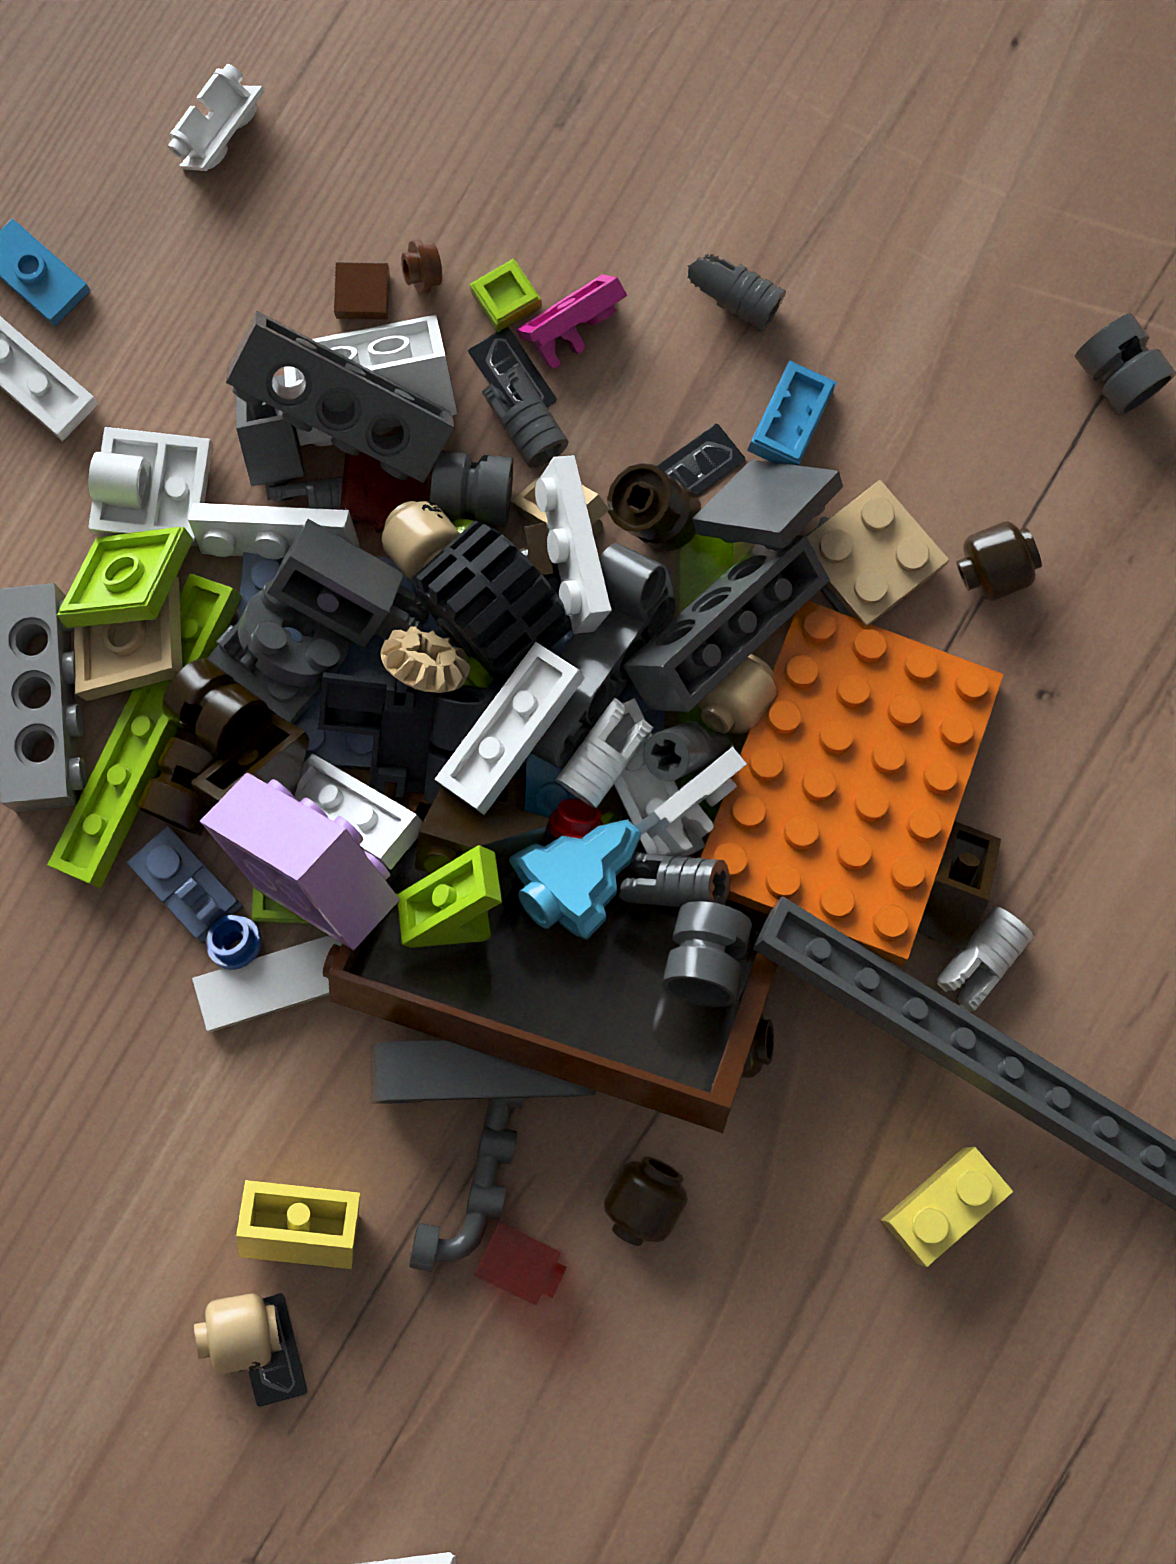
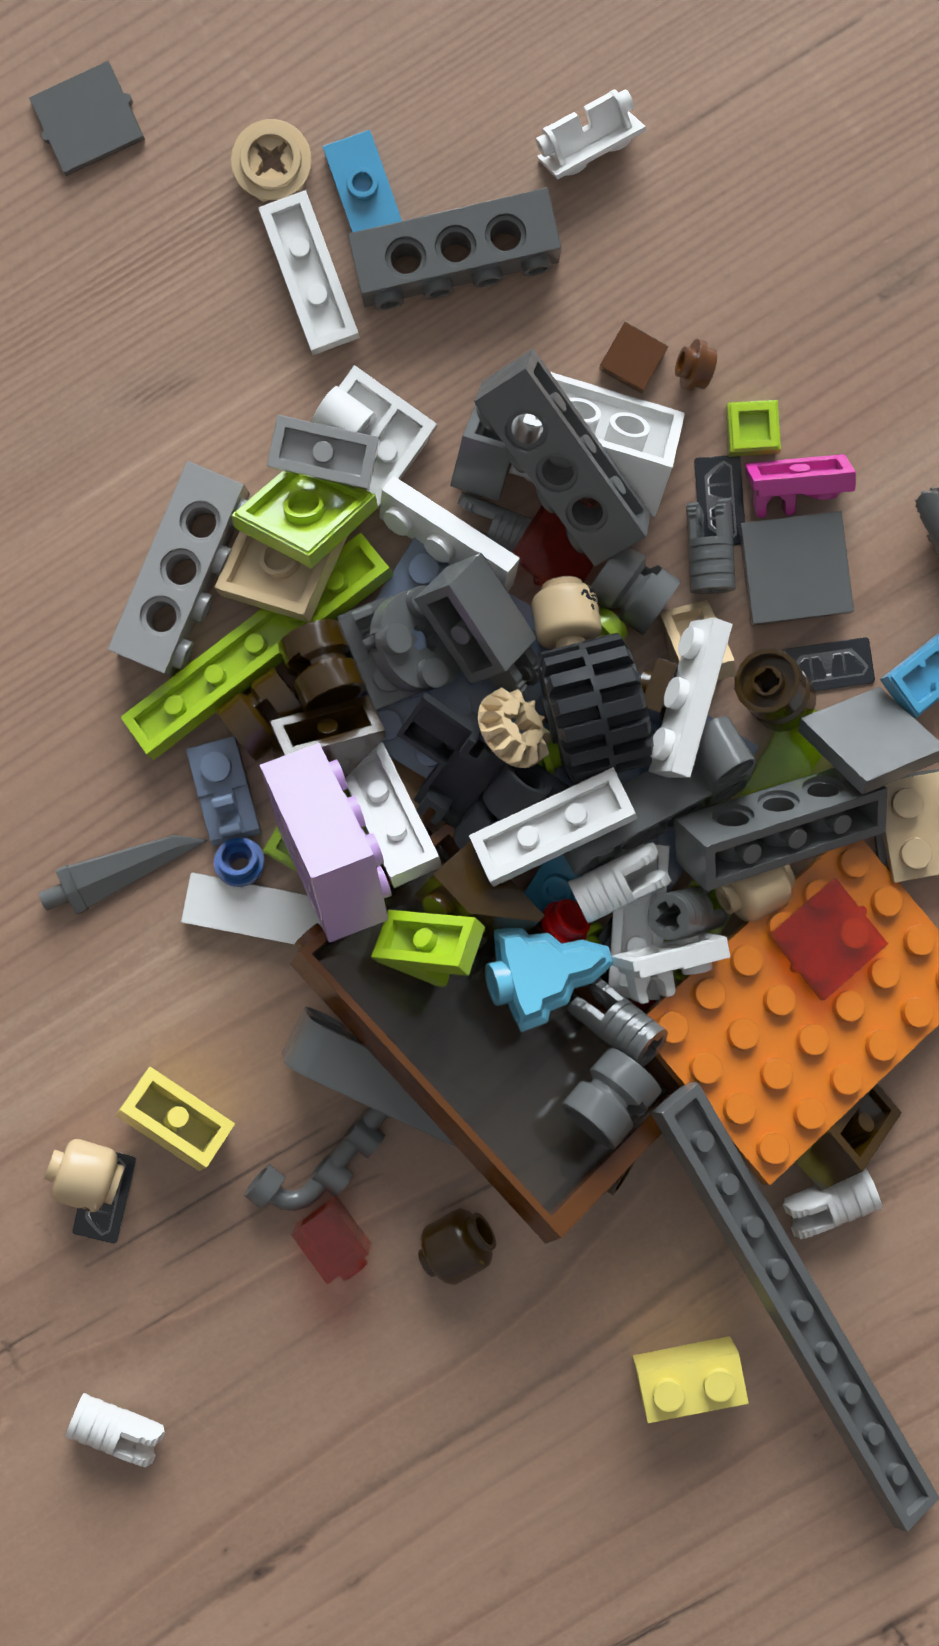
camera: 30 degrees right, 10 degrees up
(106, 1032) = (102, 876): none -> dark grey bar
(114, 512) = (323, 452): none -> light grey plate
(151, 251) = (523, 215): none -> dark grey brick
(613, 394) = (796, 568): none -> dark grey tile
(832, 704) = (828, 939): none -> clear red piece

